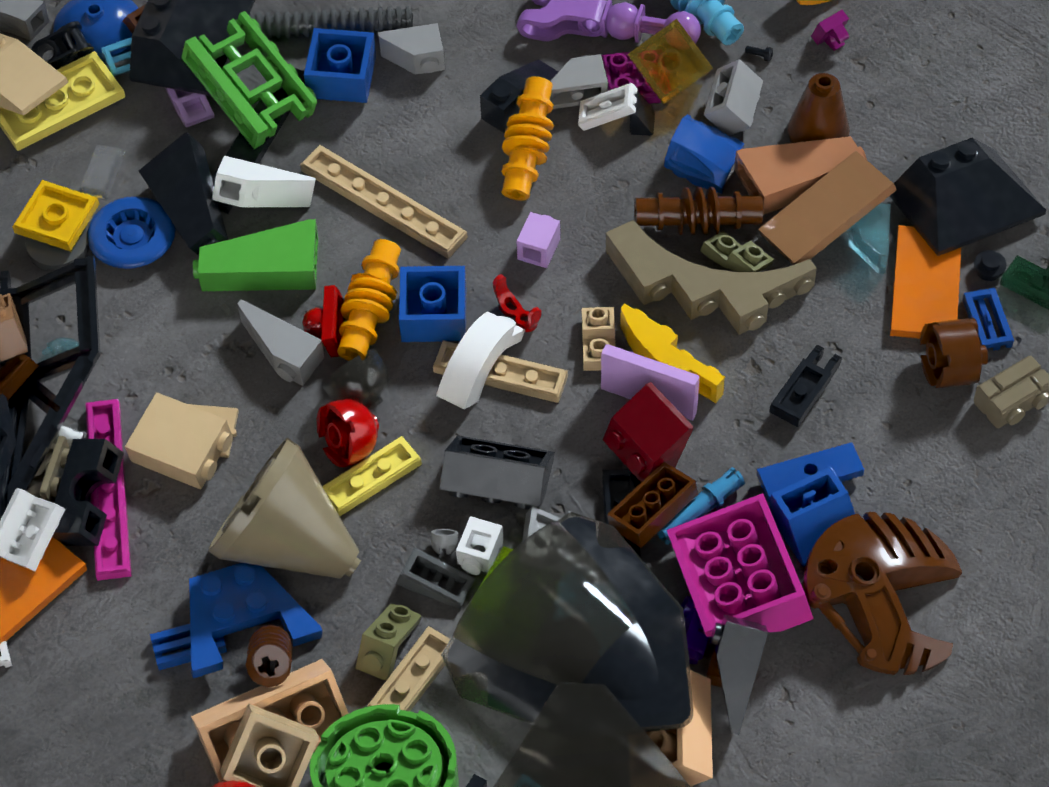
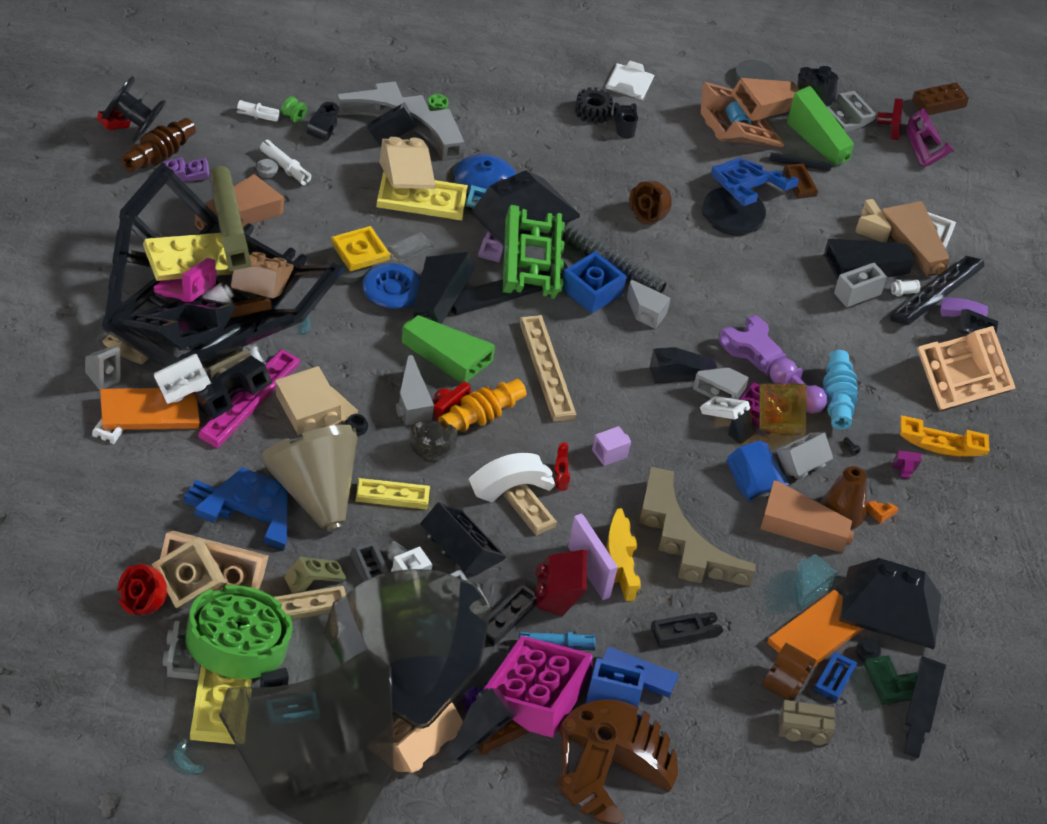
camera: 30 degrees right, 10 degrees down
(63, 45) = (453, 170): black piece -> none
(255, 428) = (359, 423): none -> black plate
(259, 185) = (483, 309): white slope -> none
(269, 656) = (241, 531): reddish brown piece -> none
(348, 431) = (402, 460): red cylinder -> none
(432, 303) = (515, 430): blue brick -> none
(527, 138) = (658, 389): light orange piece -> none
(597, 331) = (597, 514): tan slope -> none
(652, 504) = (527, 616): reddish brown piece -> none
(698, 210) = (718, 496): reddish brown piece -> none
(736, 257) = (717, 534): olive slope -> none
(827, 209) = (795, 547): medium nougat tile -> none
(856, 101) = (881, 511): none -> orange tile

